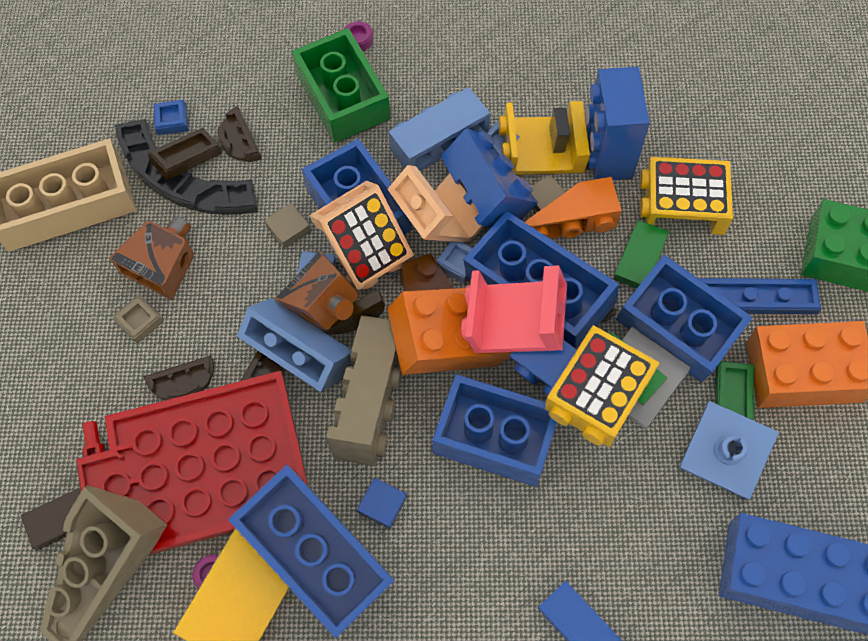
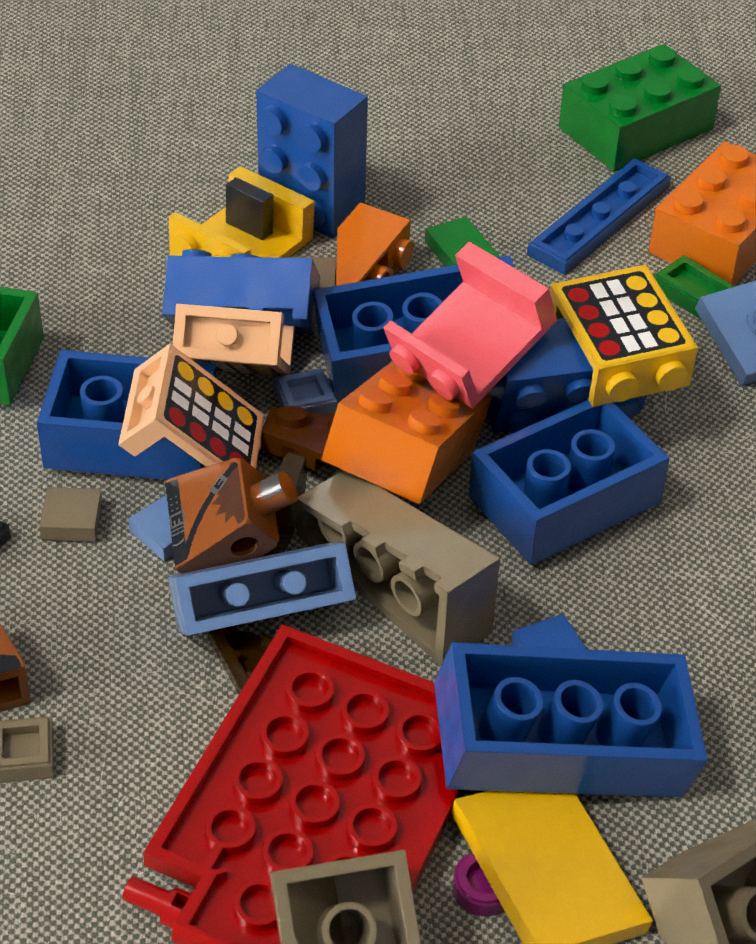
camera: 55 degrees left, 20 degrees down
(181, 379) = (166, 755): dark brown tile -> none
(431, 132) = (121, 297): medium blue brick -> none
(684, 317) = (587, 239): blue brick -> none
(687, 191) = (435, 170): panel -> none

